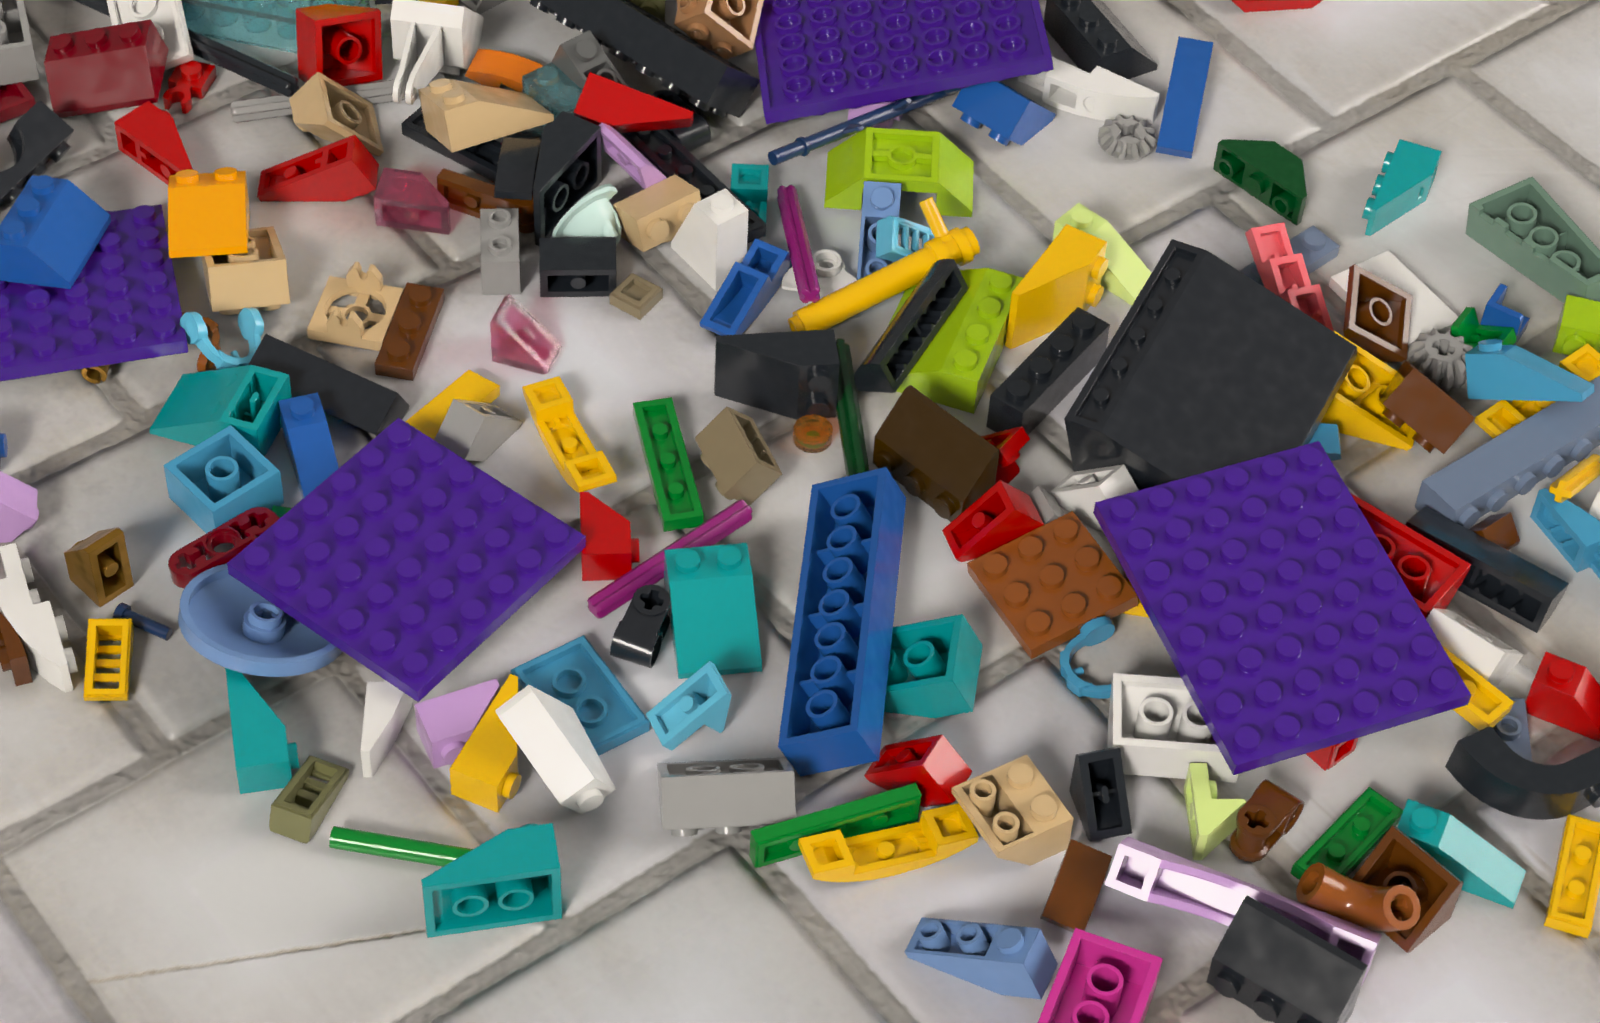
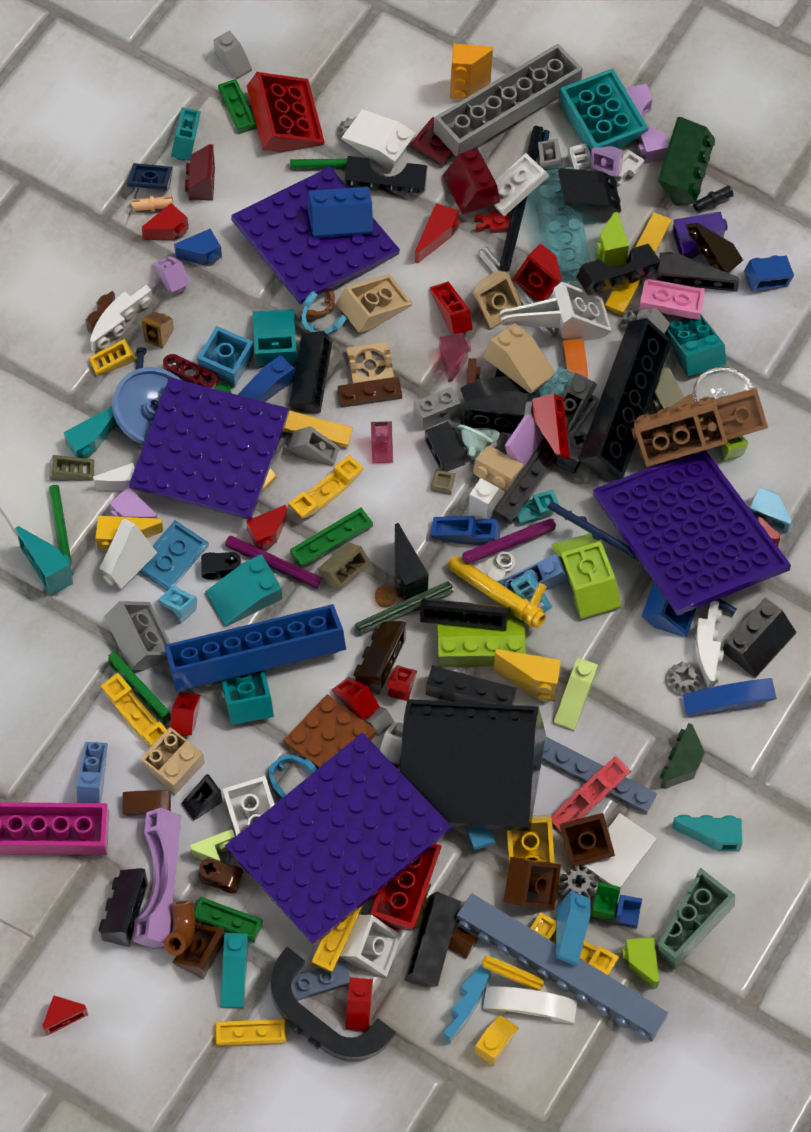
camera: 70 degrees right, 15 degrees up
(208, 213) = (391, 272): light orange slope -> none

